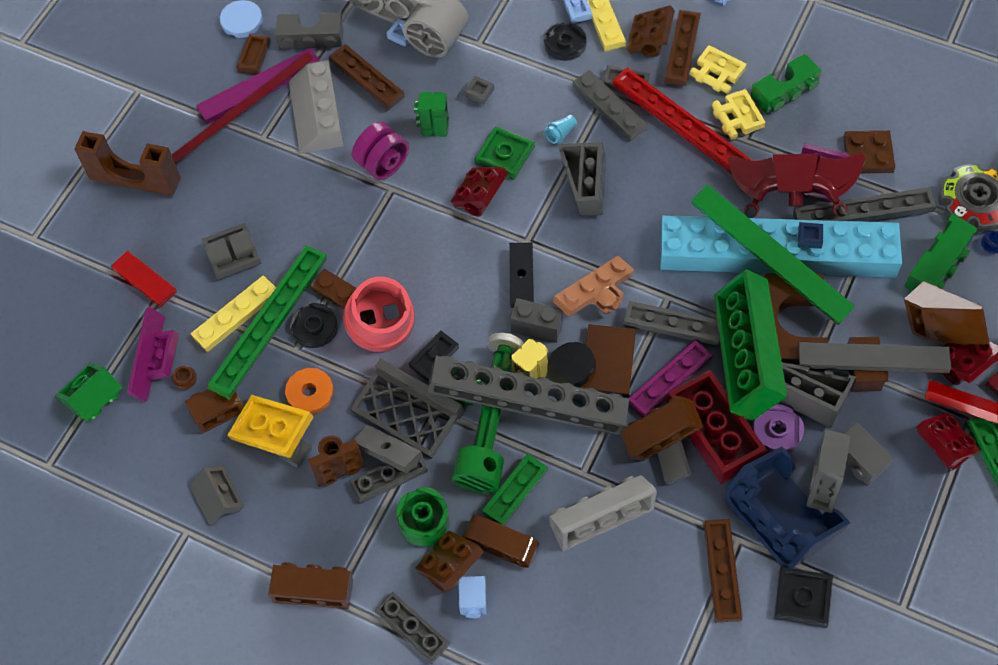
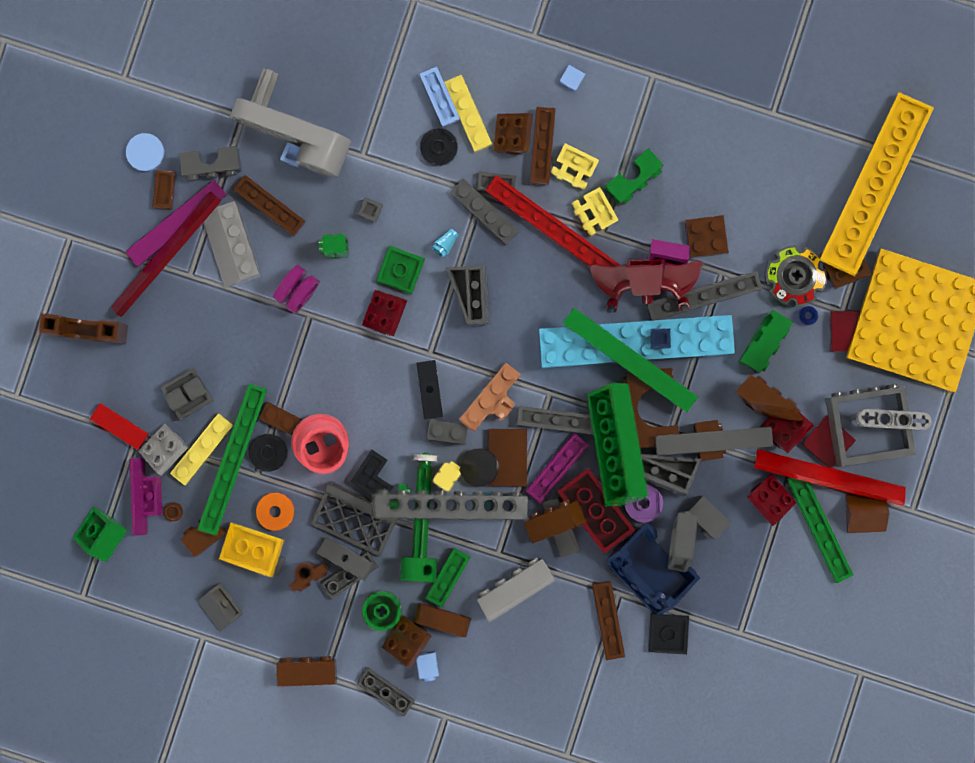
camera: 15 degrees left, 25 degrees up
(185, 305) = (163, 449): none -> light grey plate

